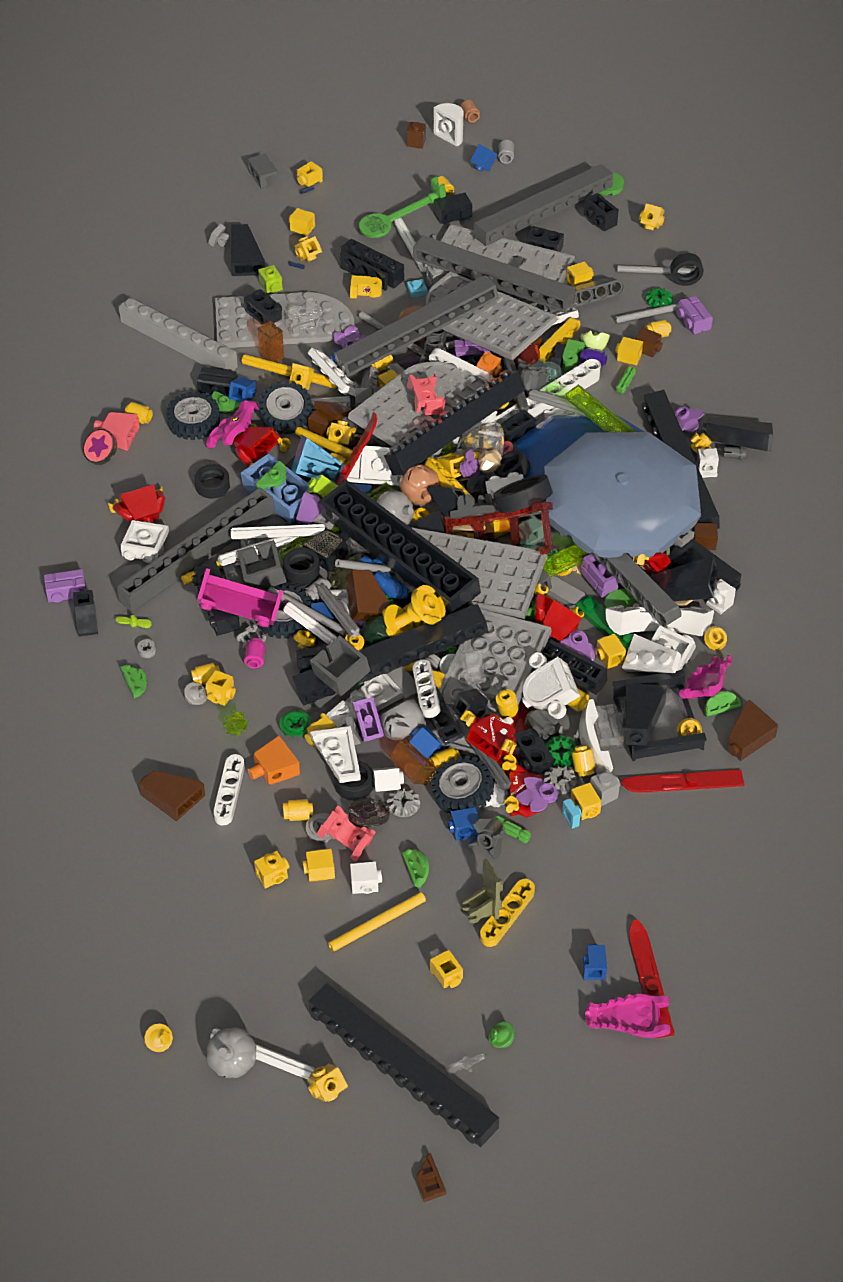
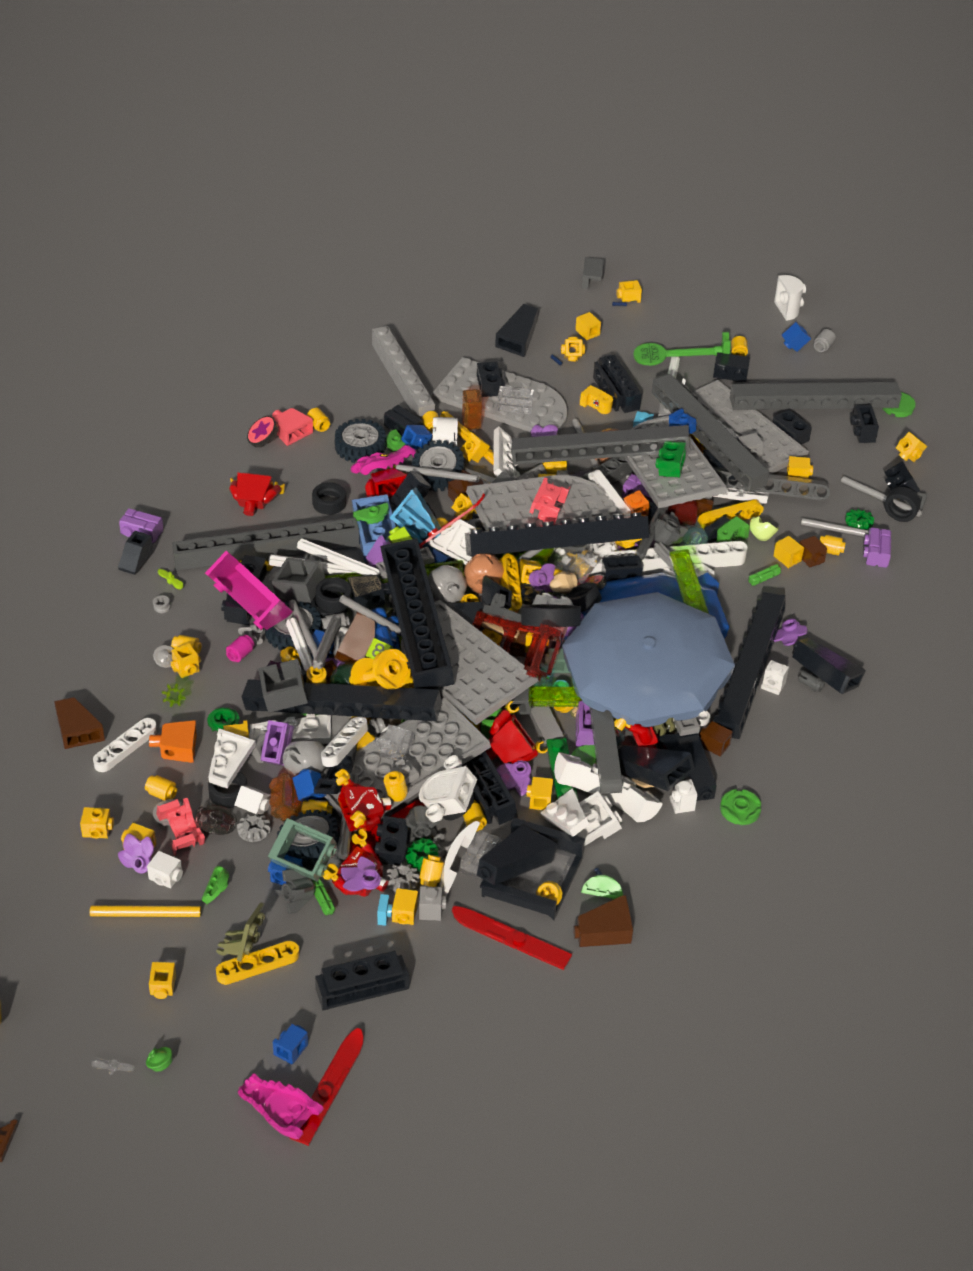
camera: 30 degrees right, 5 degrees down
(135, 680) = (129, 624): bright green plate -> none
(144, 541) = (231, 518): white plate -> none
(218, 236) = (507, 309): light grey tile -> none
(243, 369) = (428, 420): none -> yellow brick
(266, 373) = (445, 429): none -> white brick
(270, 279) = (520, 361): lime brick -> none
(285, 442) = (410, 482): none -> black brick
(295, 414) = (438, 473): none -> light grey piece
(326, 443) = (449, 513): yellow piece -> none
(328, 874) = (135, 851): none -> medium lavender plate
(394, 595) = (376, 647): none -> lime tile
(403, 1065) = (59, 1039): black brick -> none
(416, 135) = (752, 295): reddish brown brick -> none
(457, 797) = (285, 839): none -> sand green window
(468, 274) = (679, 418): none -> blue brick
(470, 110) = (820, 294): nougat brick -> none
(472, 701) = (366, 771): black brick -> none
(492, 311) = (671, 459): none -> green brick
(590, 353) = (754, 544): dark purple brick -> none
(605, 880) = (362, 982): none -> black brick
(668, 248) = (900, 477): none -> black brick
(700, 442) = (784, 656): yellow gear -> none
(707, 679) = (606, 860): dark pink animal -> none
(715, 638) = (648, 830): yellow hat -> none
(765, 583) = (740, 807): none -> bright green tile

